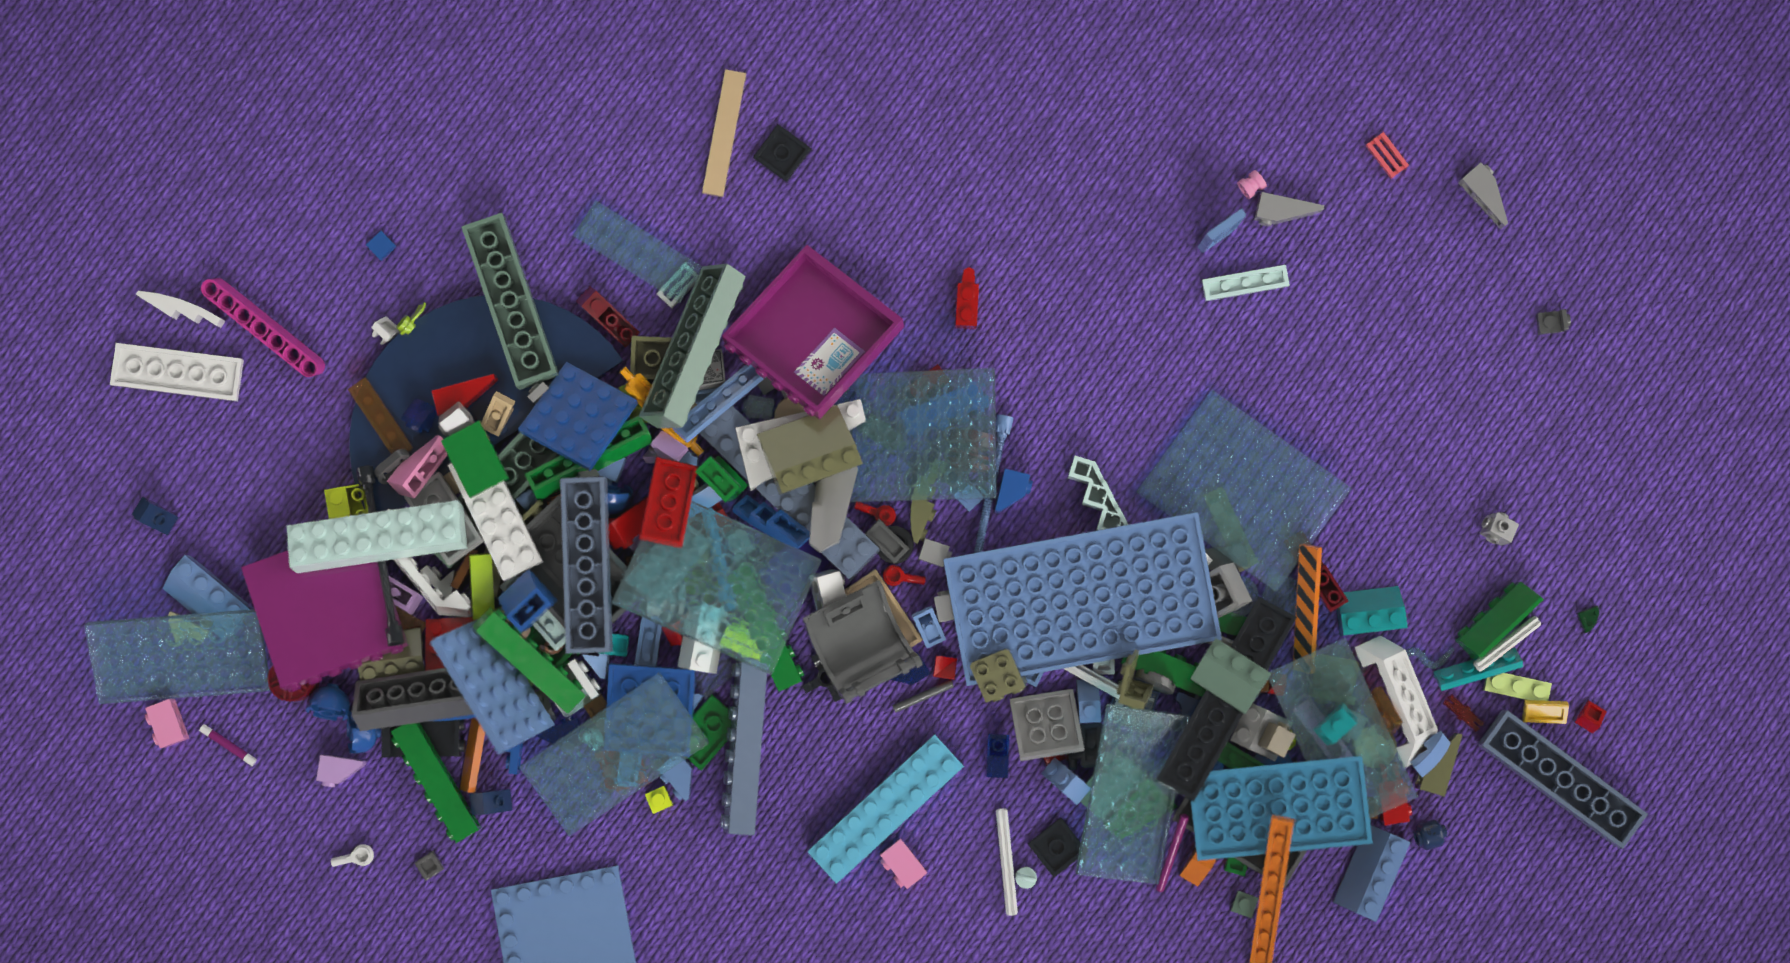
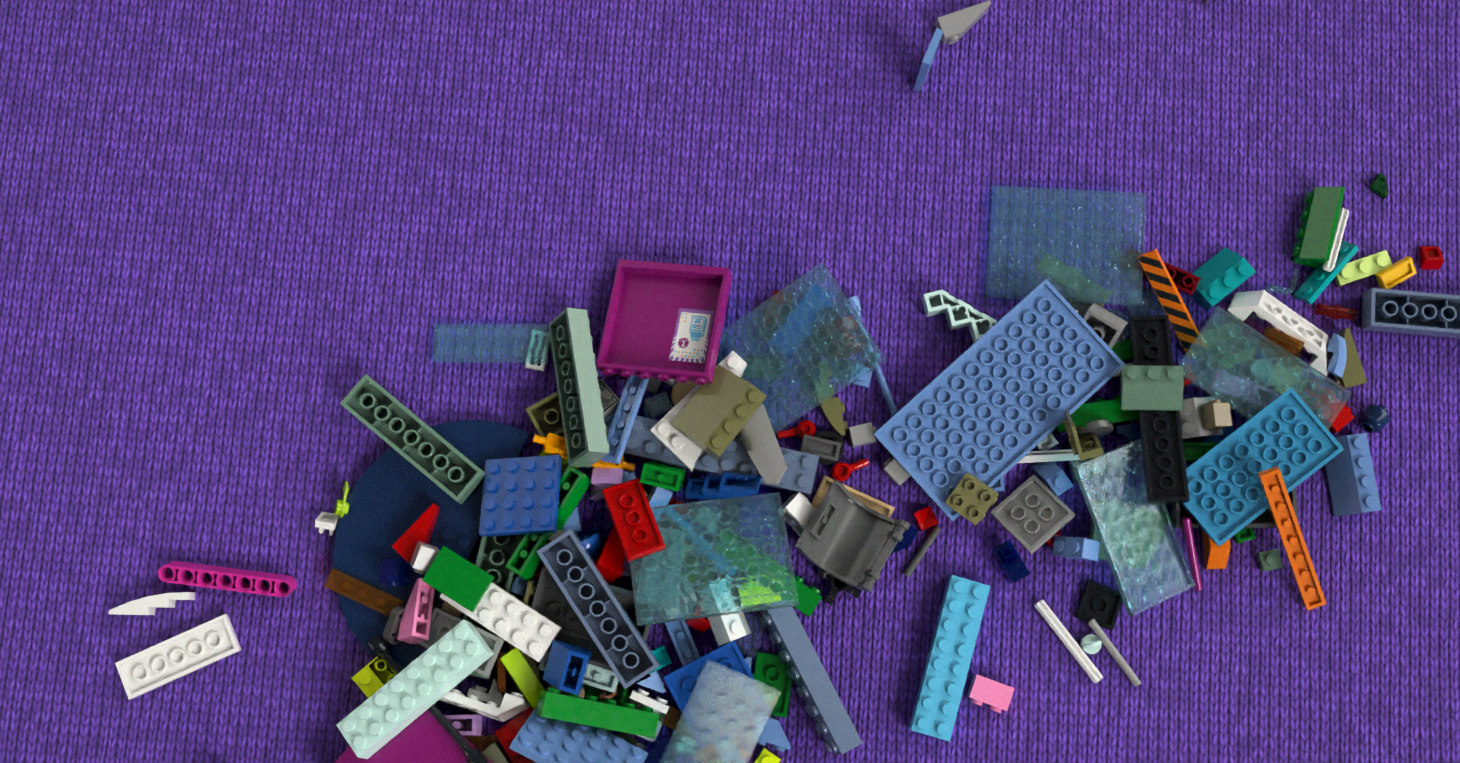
camera: 30 degrees left, 5 degrees down
(381, 245) = (286, 459): blue tile -> none
(498, 413) = (455, 532): tan slope -> none
(537, 391) = (476, 496): light grey plate -> none
(607, 316) = (496, 406): dark red slope -> none
(724, 133) = (504, 215): tan tile -> none
(782, 153) = (557, 204): black tile -> none
(928, 627) = (893, 494): medium blue slope -> none
(967, 301) = (767, 229): red hinge -> none
(1012, 489) = (892, 346): blue slope -> none
(1042, 899) = (1114, 652): none -> light grey bar
(1091, 739) = (1077, 504): black plate -> none
(1245, 283) = (966, 92): light aqua plate -> none
(1252, 184) = (925, 18): bright pink wheel -> none
(1336, 725) = (1256, 374): teal torso -> none
(1498, 528) = (1272, 158): light grey brick -> none

